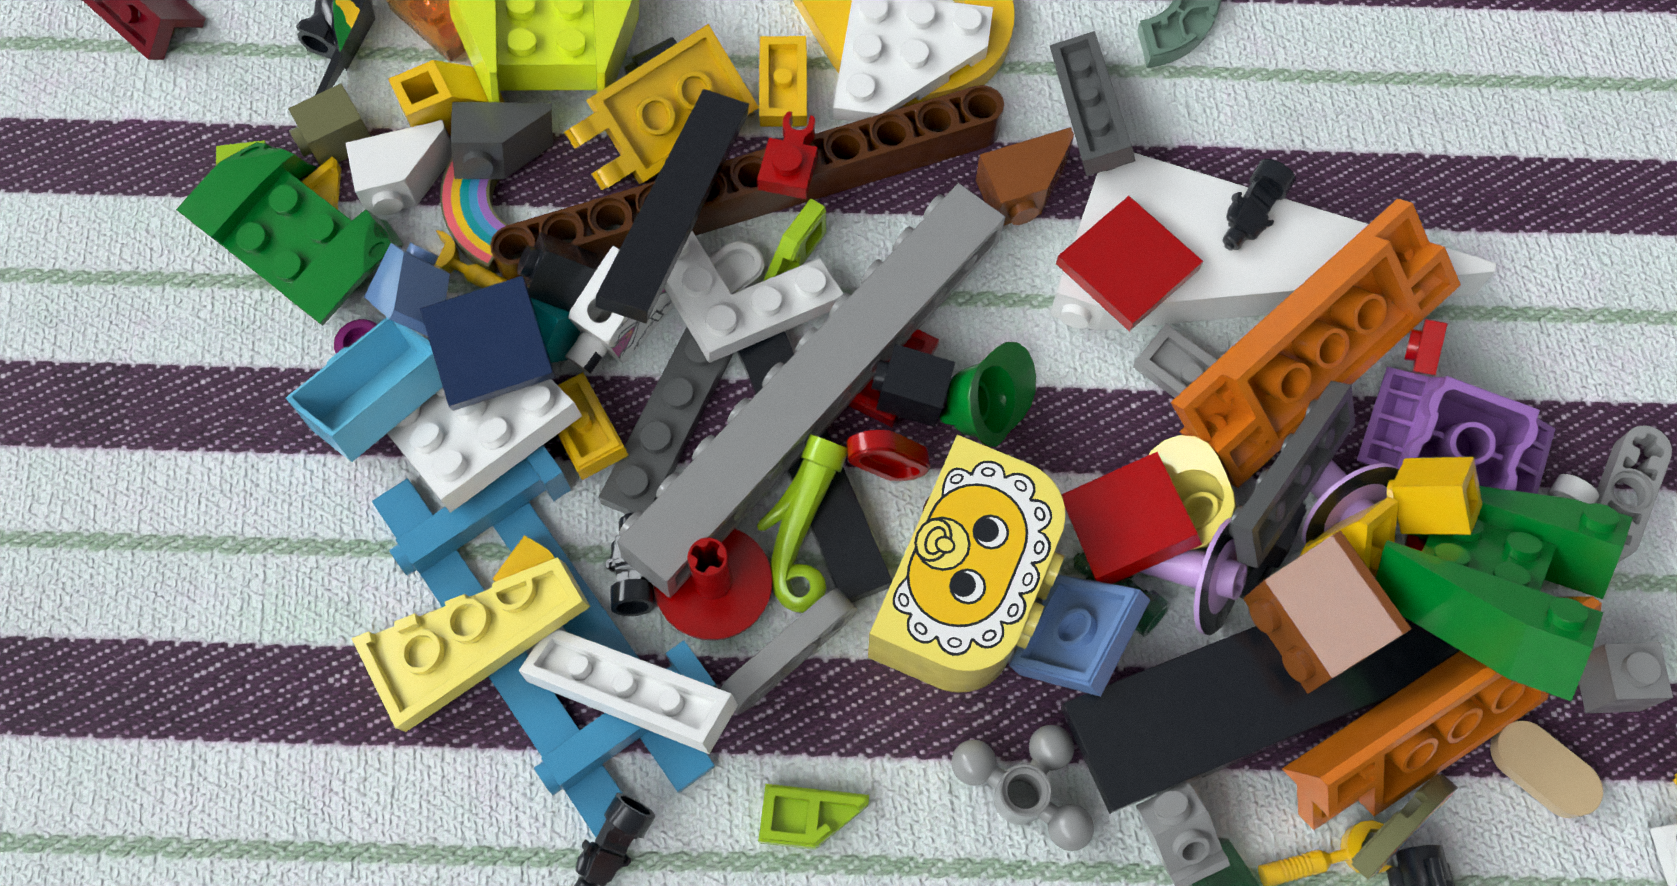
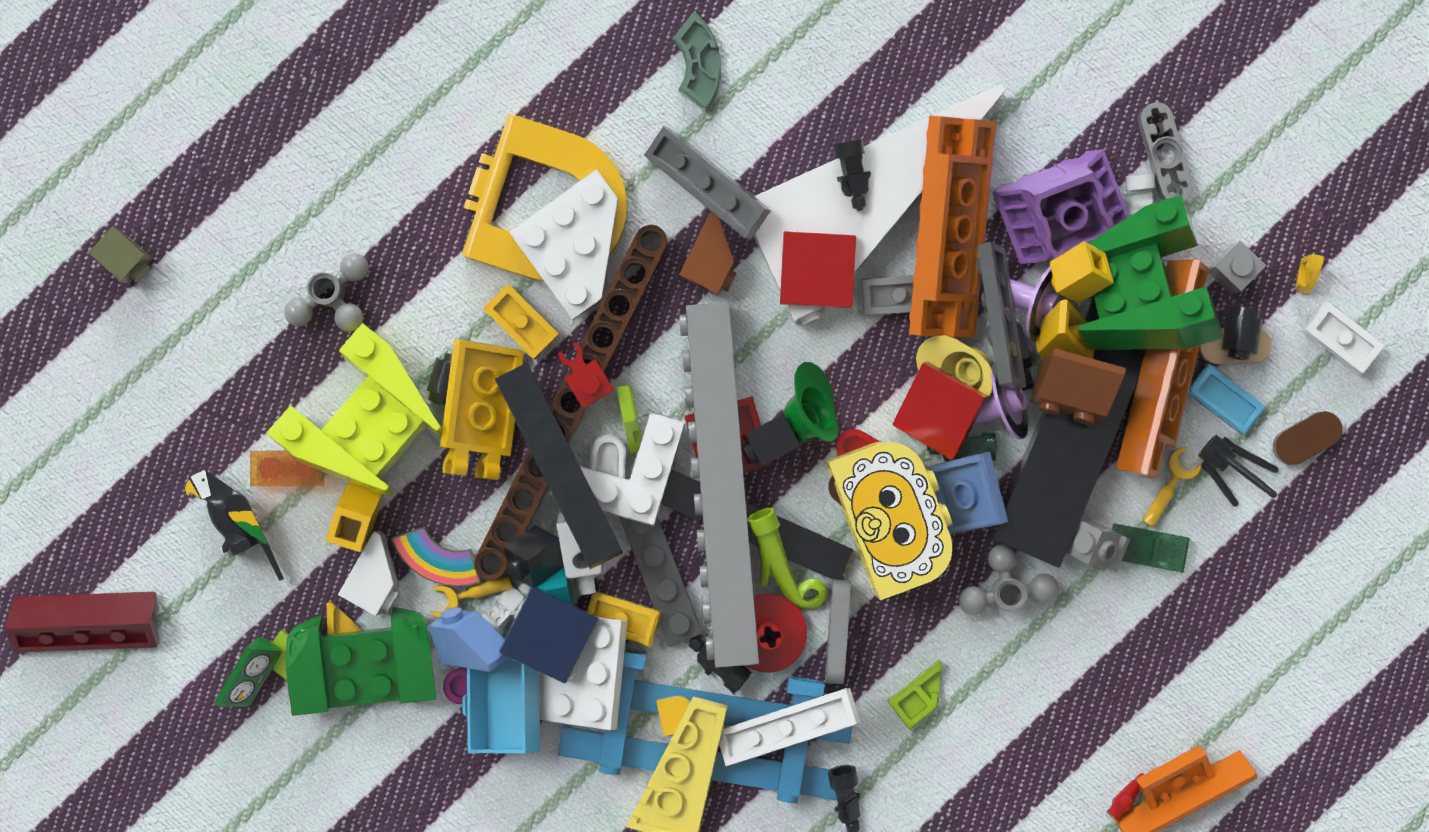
camera: 45 degrees left, 20 degrees up
(186, 142) = (249, 674): none -> slope
(327, 124) = (309, 590): olive brick -> none
(498, 137) = (410, 512): dark grey slope -> none
(888, 455) = (794, 492): red tile -> none
(1403, 825) = (1192, 444): olive tile -> none
(1426, 346) = (1006, 174): red plate -> none
(1485, 823) = (1225, 399): none -> medium azure tile
(1576, 751) = (1242, 333): none -> black brick

